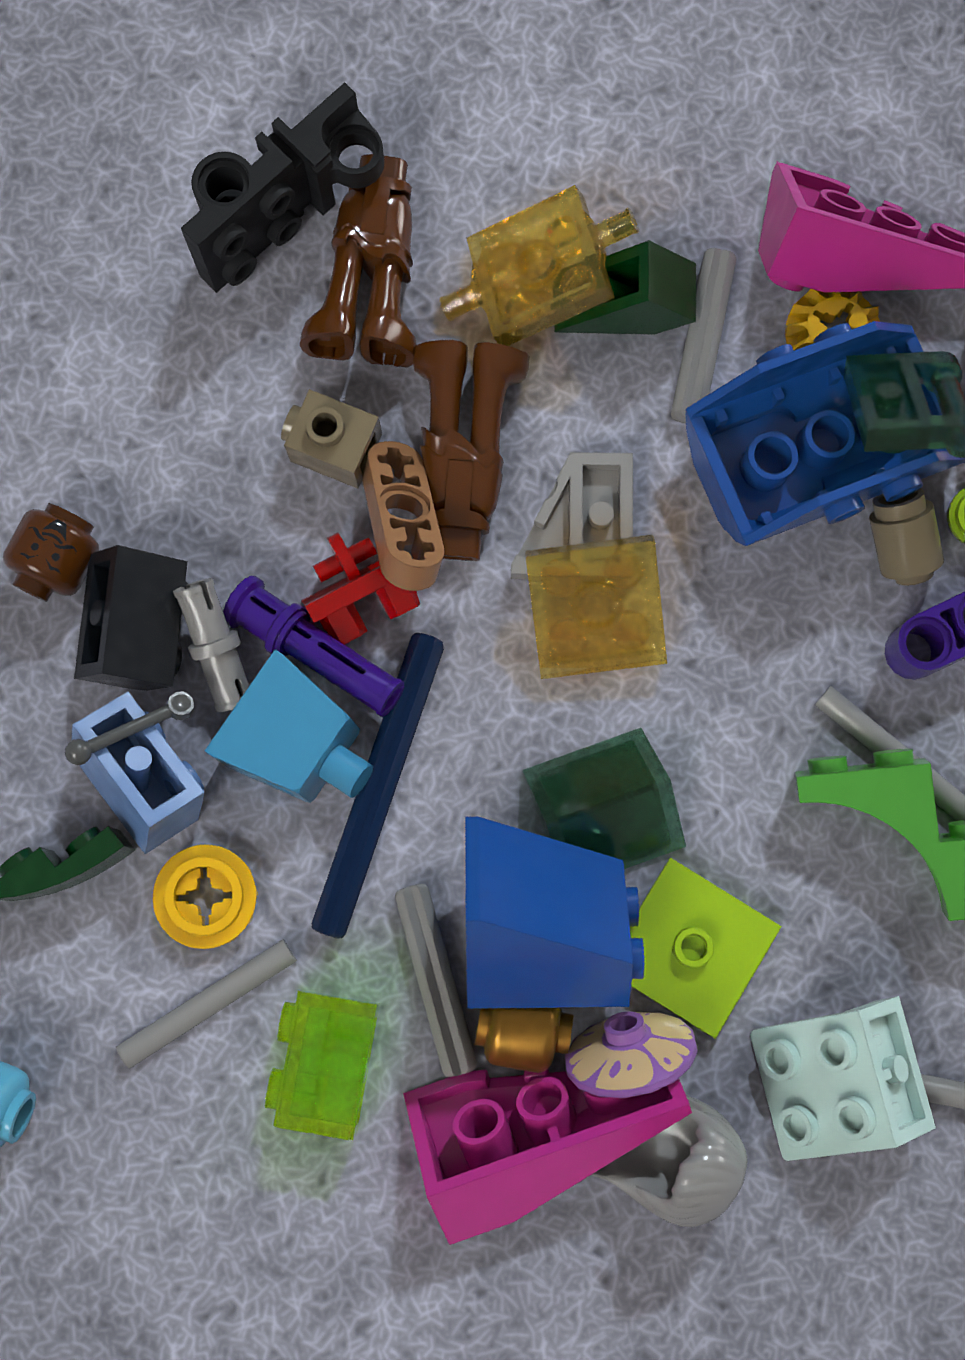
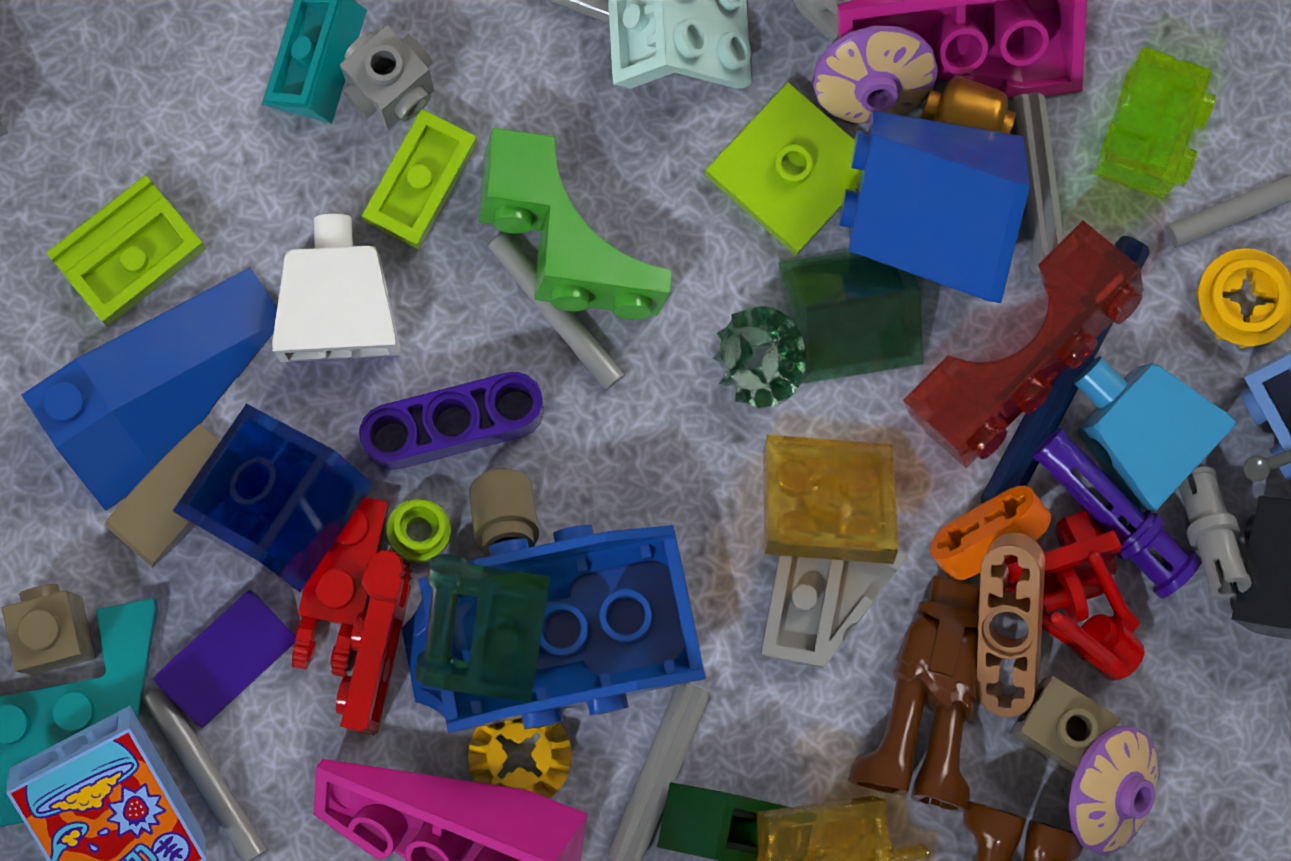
camera: 175 degrees left, 0 degrees up
(280, 386) = (1113, 789): none -> dish
(302, 522) = (1102, 639): none -> red plant
(378, 858) = (973, 403): none -> clear red arch
(425, 615) = (965, 540): none -> orange beam
(667, 727) = (782, 366): none -> clear green gear

